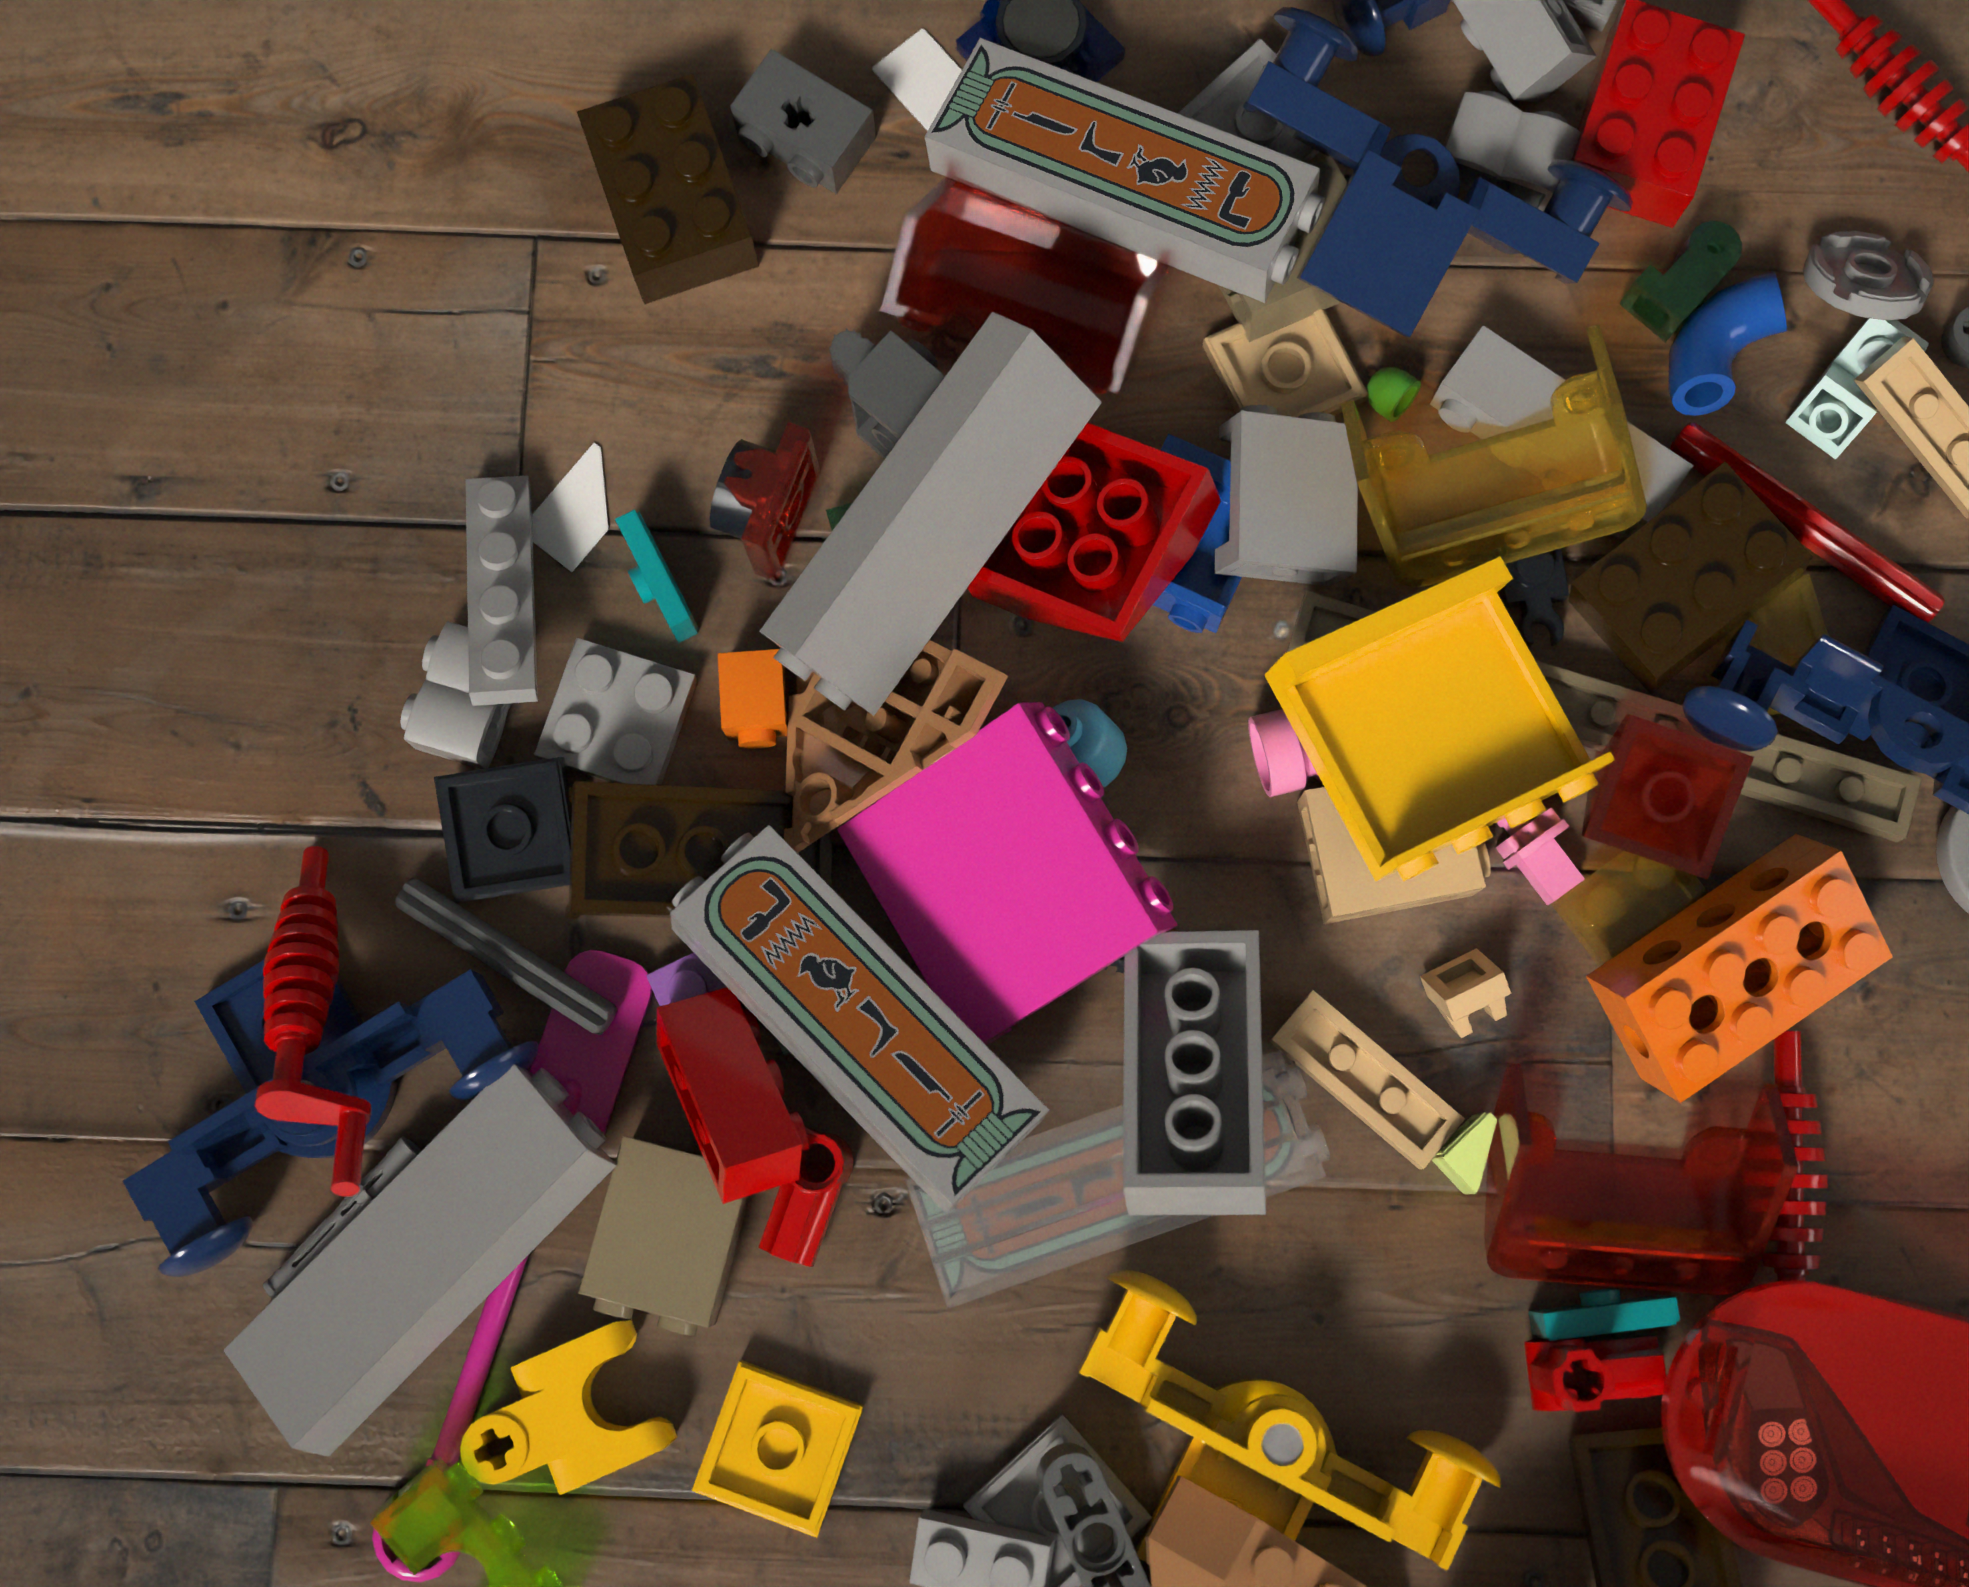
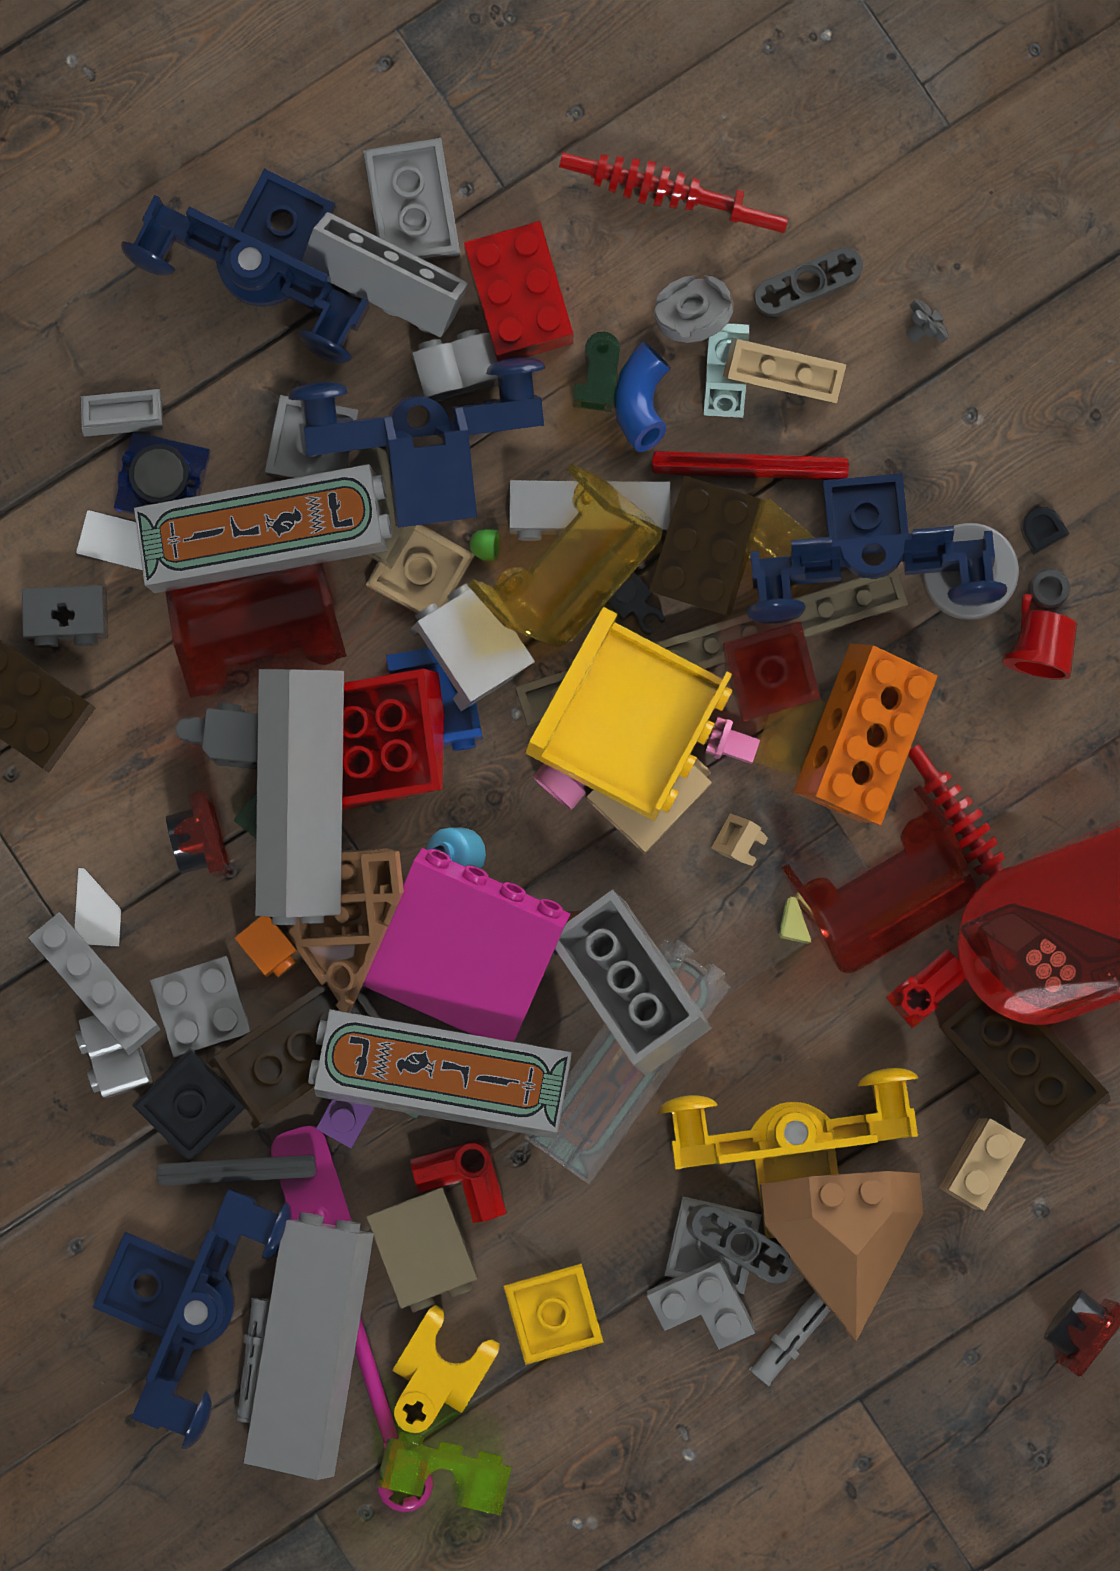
camera: 40 degrees left, 5 degrees up
(297, 995) = (151, 1261): red piece -> none
(654, 578) = (168, 920): teal plate -> none
(730, 1094) = (405, 1156): red brick -> none
(1367, 1080) = (719, 921): tan plate -> none
(1603, 1313) = (914, 955): teal plate -> none

